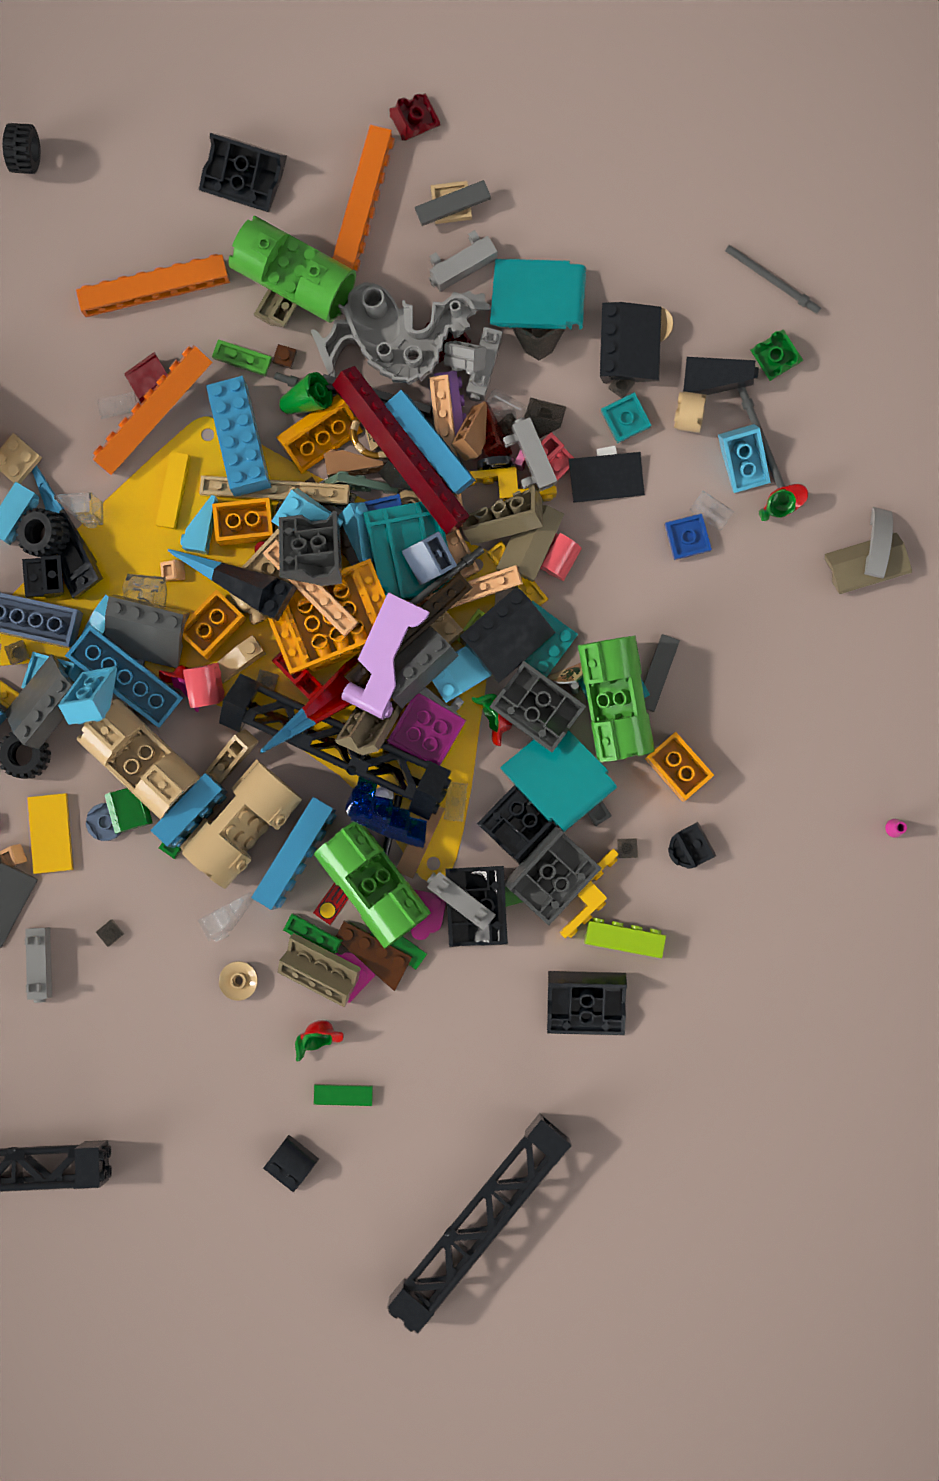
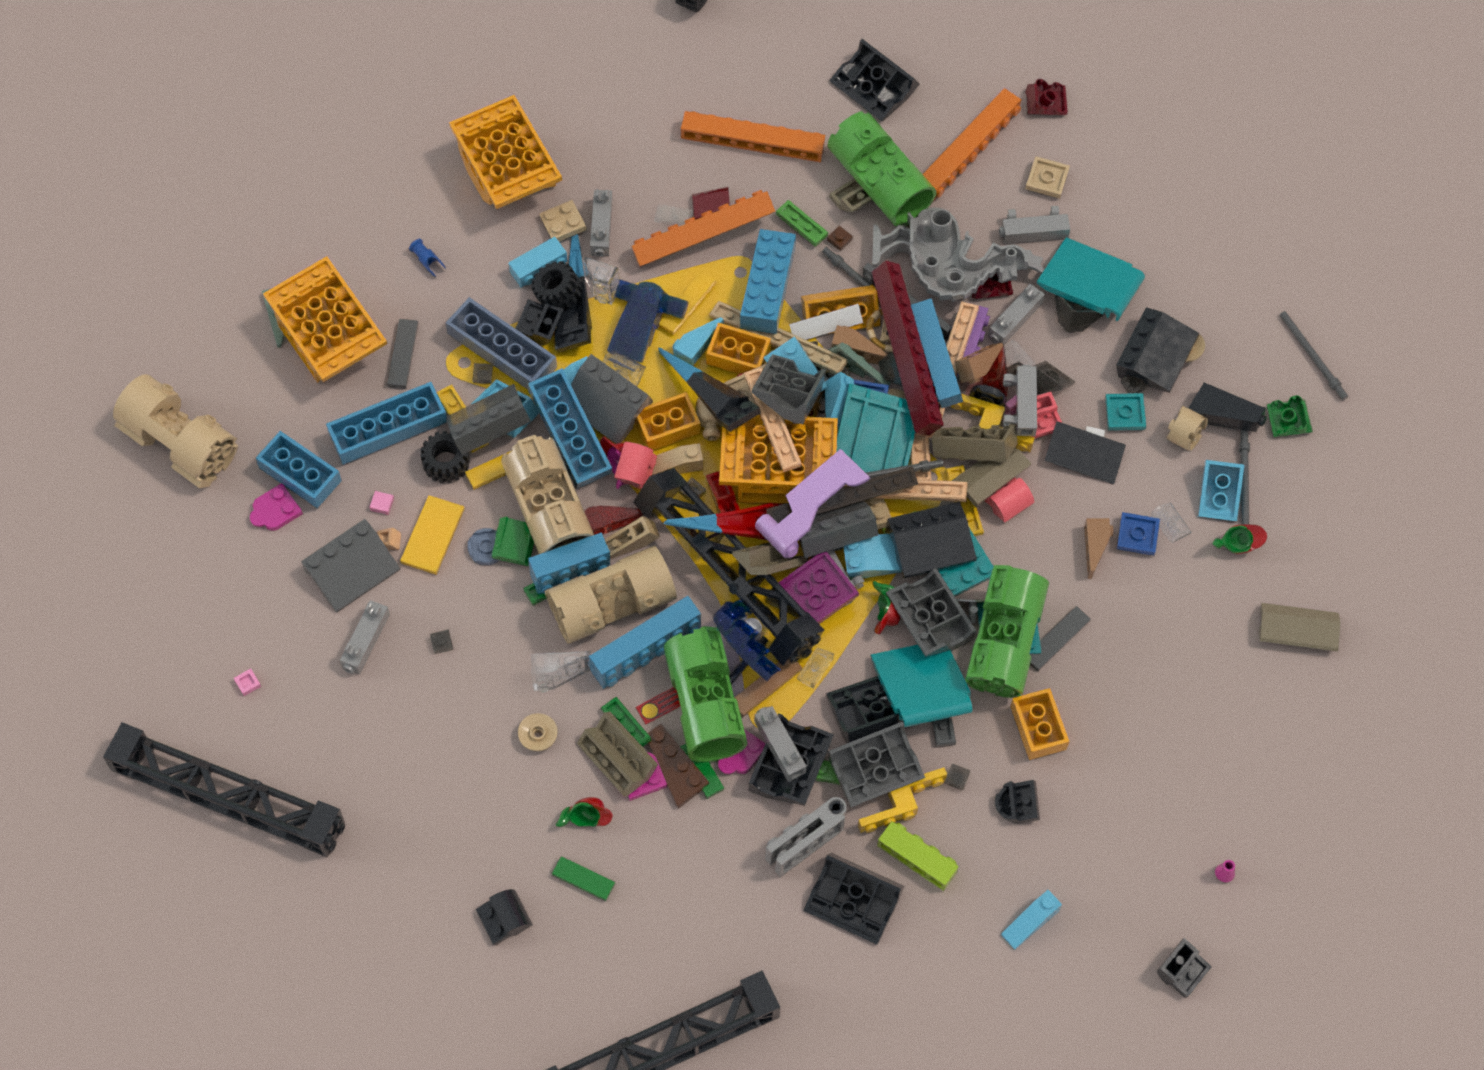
camera: 20 degrees right, 20 degrees down
(52, 445) = (601, 223): none -> light grey brick
(69, 749) = (486, 472): none -> yellow tile
(89, 696) = (533, 421): medium azure slope -> none
(138, 527) = (642, 317): none -> clear blue slope
(173, 570) = (654, 366): light nougat slope -> none
(200, 747) = (610, 518): none -> clear red slope
(307, 395) = (845, 273): green cone -> none
(312, 453) = (827, 322): none -> white sticker
(429, 558) = (890, 445): sand blue slope -> none
(452, 203) = (1048, 176): dark grey tile -> none
(464, 356) = (1001, 298): light grey brick -> none
(532, 948) = (806, 836): none -> light grey hinge
(653, 559) = (1097, 537): none -> medium nougat slope
(748, 951) = (1032, 919): none -> medium azure slope
(880, 542) = (1315, 611): light grey slope -> none
(897, 935) = (1183, 968): none -> black brick

